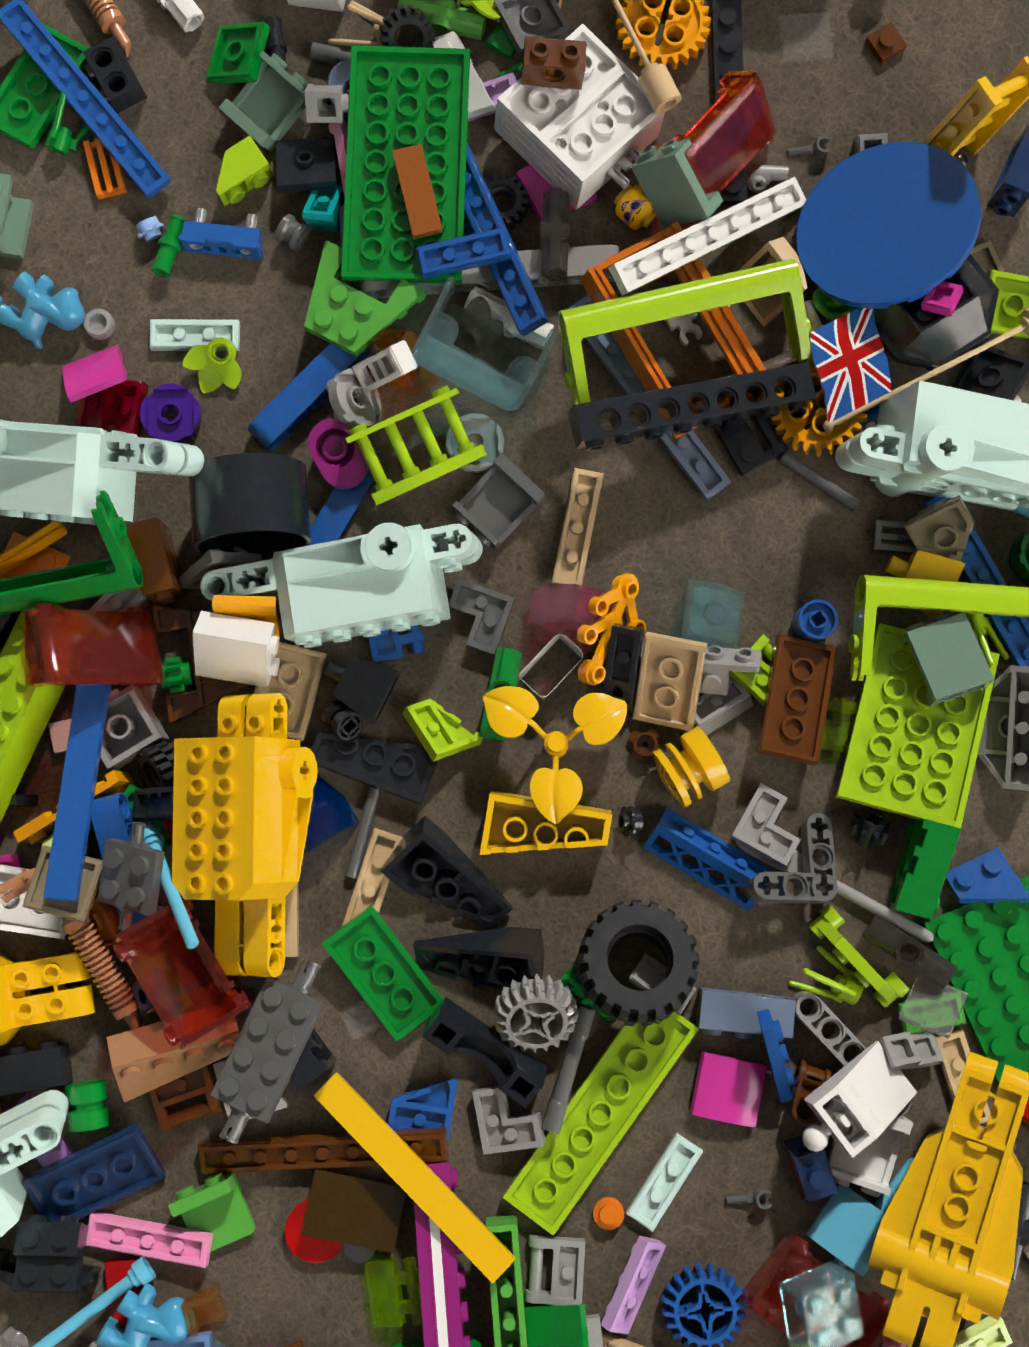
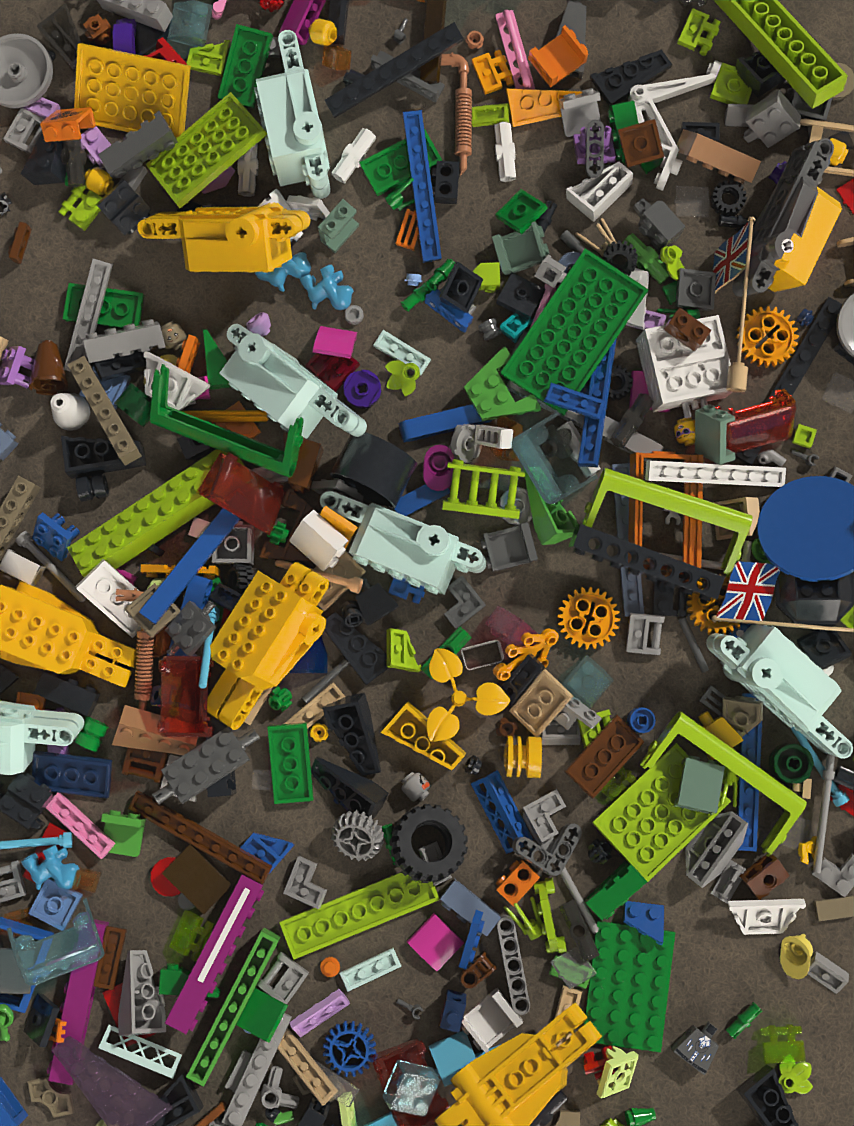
camera: 30 degrees right, 0 degrees up
(182, 199) = (440, 275): none -> green pin
(217, 197) = (460, 288): none -> black slope
(316, 895) = (280, 698): none -> green gear
(320, 679) = (354, 584): none -> light nougat piece
(389, 907) = (319, 737): none -> yellow plate
(415, 1177) = (240, 881): yellow tile -> none
(417, 191) = (570, 352): dark orange tile -> none
(459, 1031) = (311, 819): black arch -> none
(528, 432) = (549, 520): none -> bright green wedge
(558, 1104) = (337, 893): dark grey piece -> none
(572, 898) = (415, 786): none -> light grey head
(577, 527) = (544, 588): tan tile -> none
(634, 536) = (572, 612): none -> light orange gear
(739, 510) = (638, 633): none -> light grey plate
(791, 122) = (804, 436): none -> lime plate
(795, 940) = (521, 885): none -> orange brick
(862, 1097) = (504, 989): white slope -> none
(912, 1051) = (546, 984): light grey slope -> none
(943, 299) = (820, 589): dark pink tile -> none

